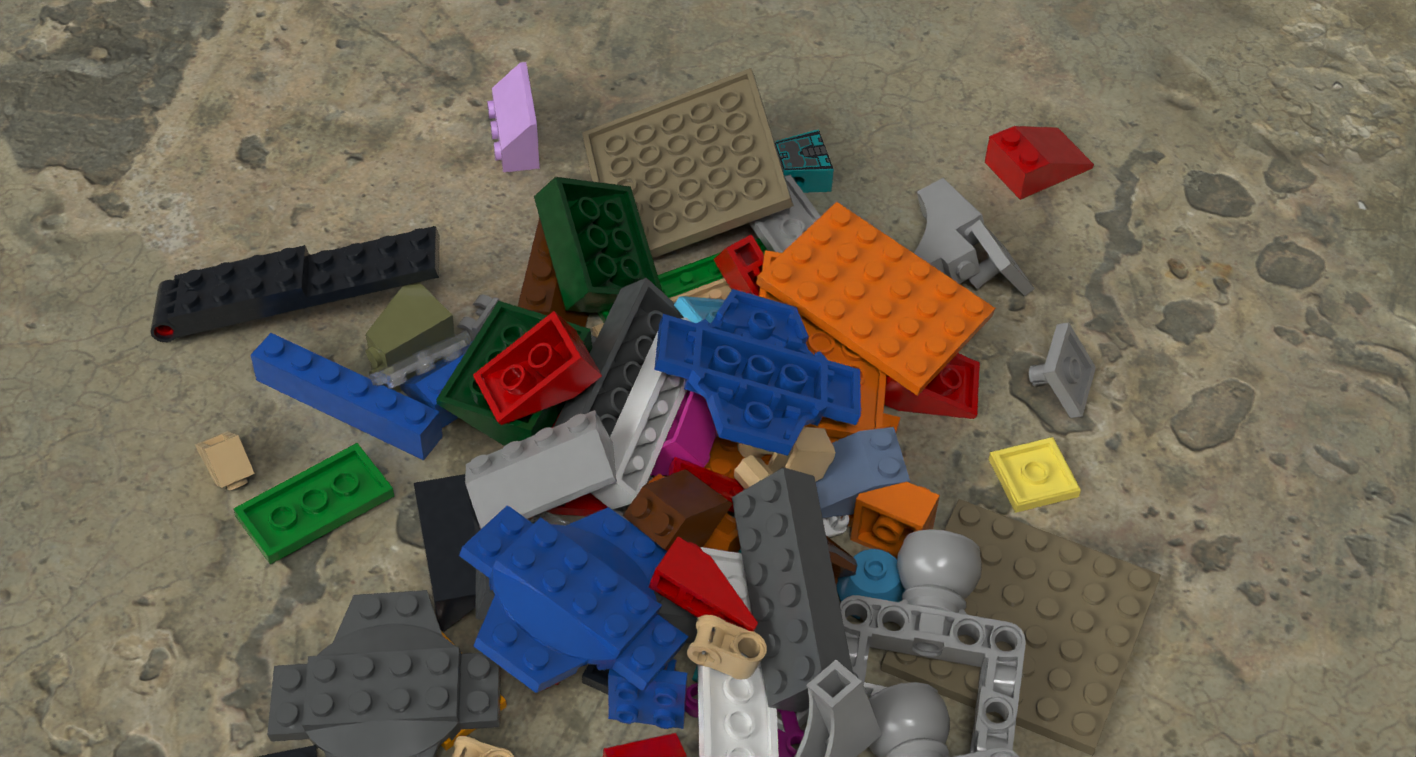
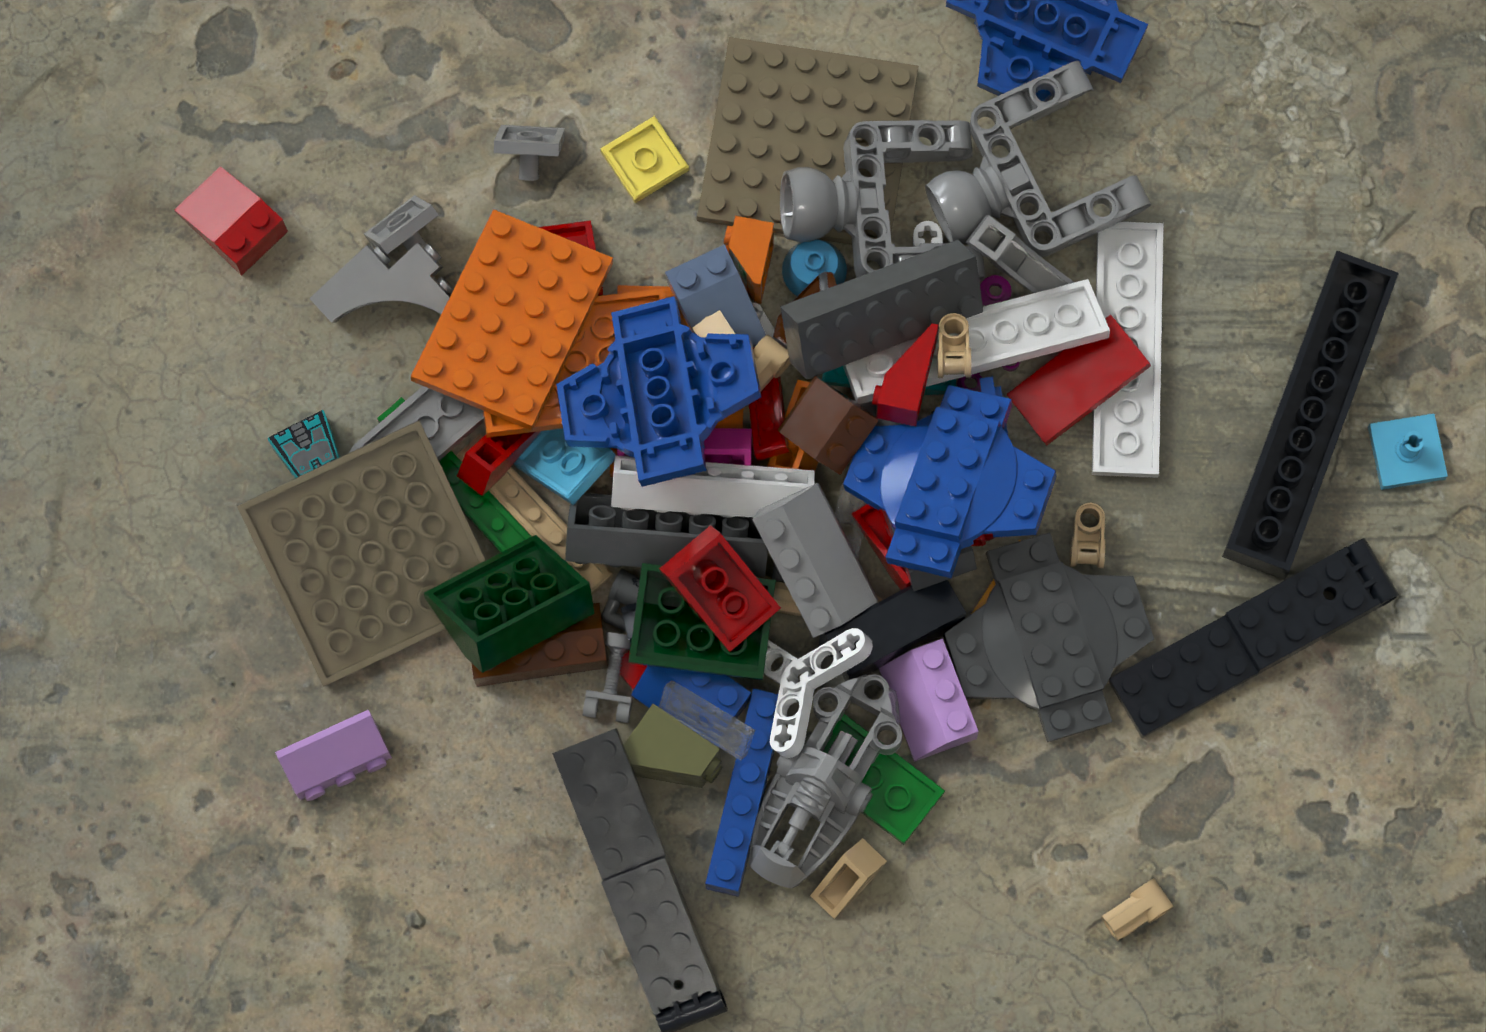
camera: 100 degrees left, 25 degrees up
(58, 706) = (1143, 906): none -> tan piece
(331, 452) = (822, 783): none -> light grey piece
(352, 570) = (930, 700): none -> lavender slope
(430, 445) = (803, 691): none -> white piece

